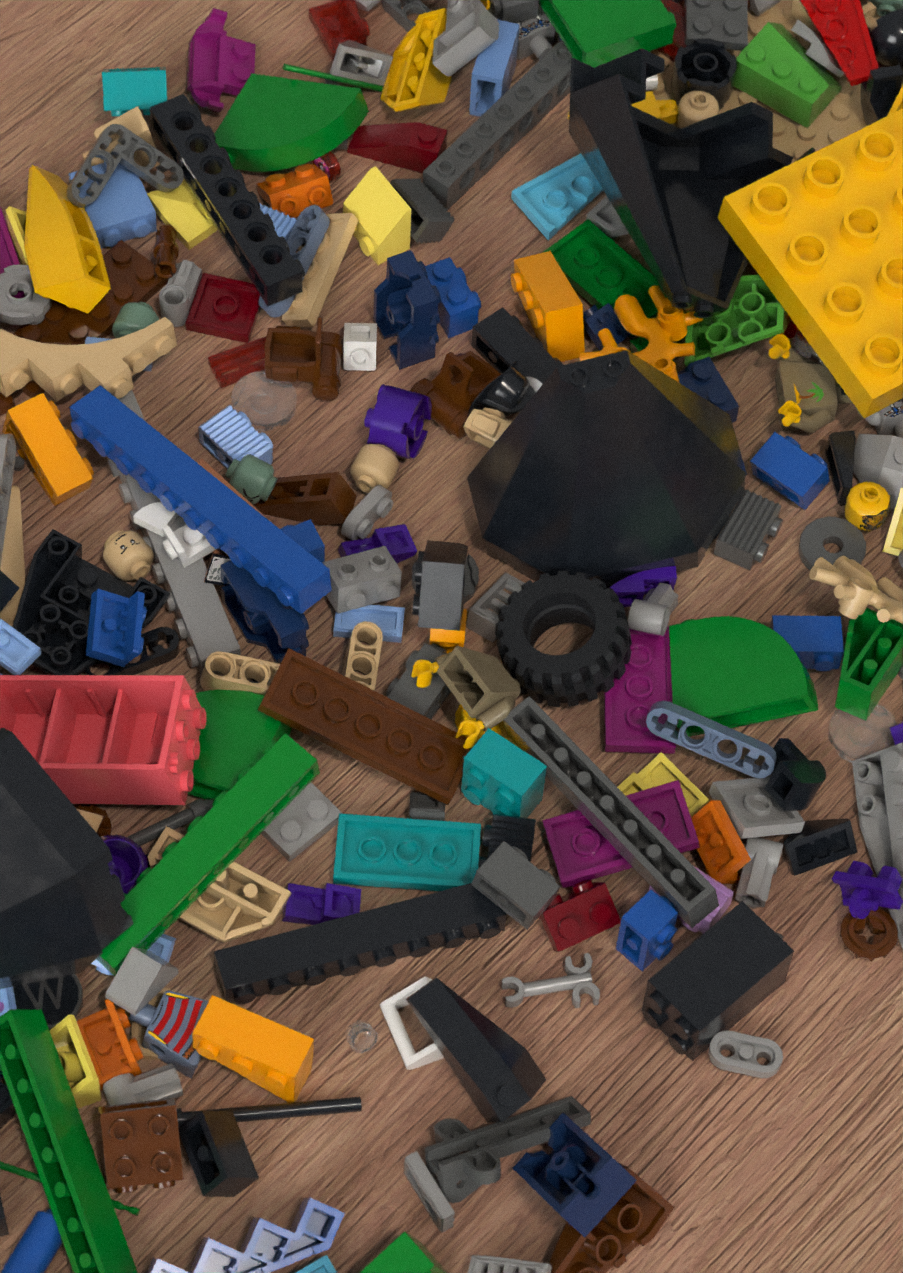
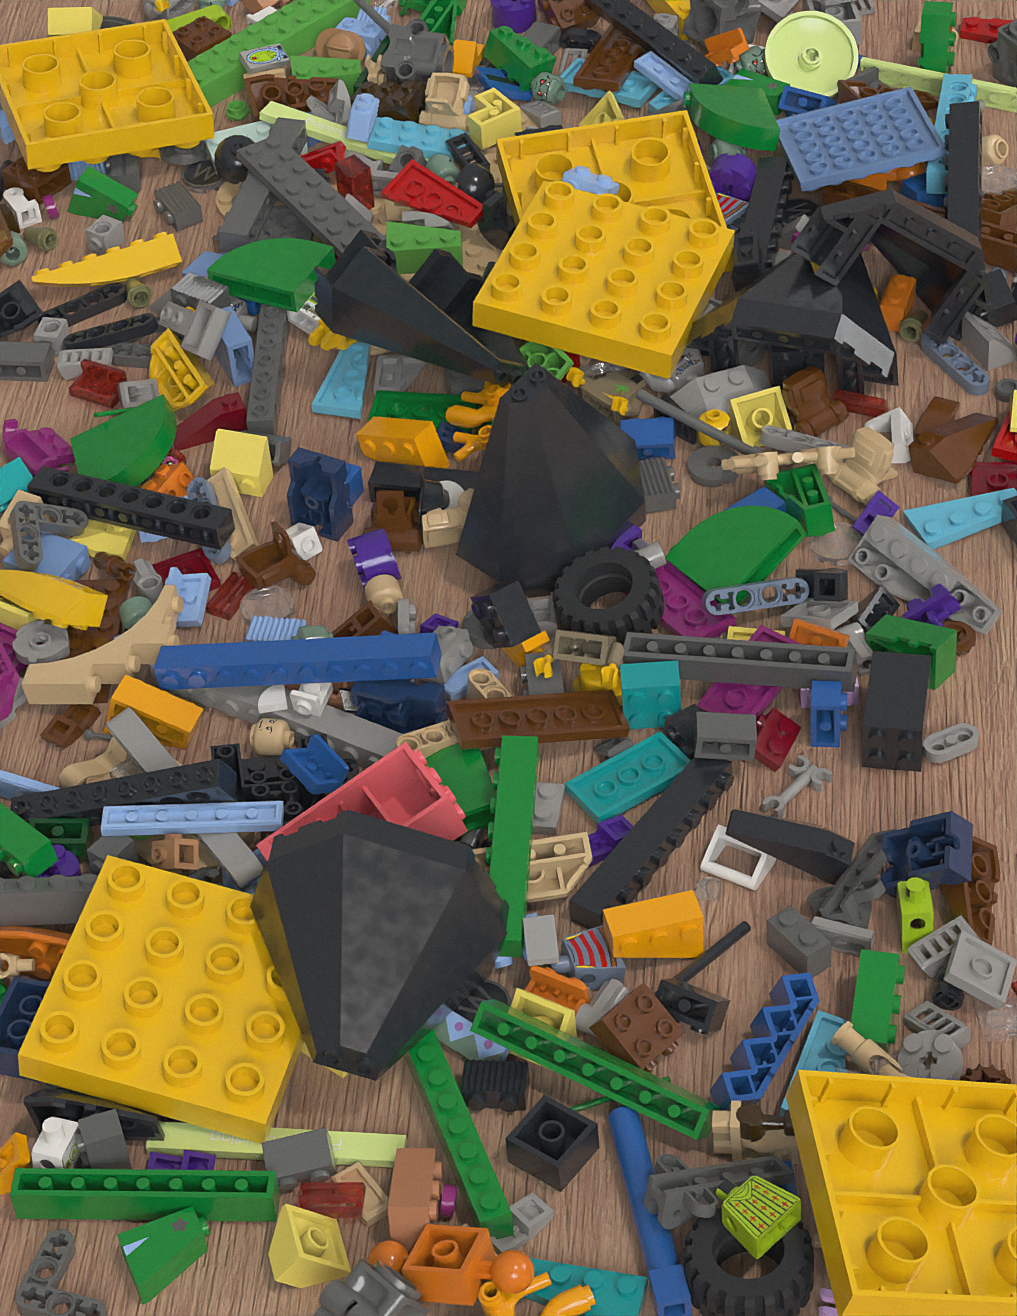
camera: 30 degrees left, 15 degrees down
(197, 336) = (194, 592): none -> light blue bracket
(382, 1165) = (798, 942): none -> dark grey brick
(516, 1221) = (913, 902): none -> lime torso
(809, 918) = (914, 637): none -> green wedge
(880, 565) = (697, 424): none -> dark grey bar

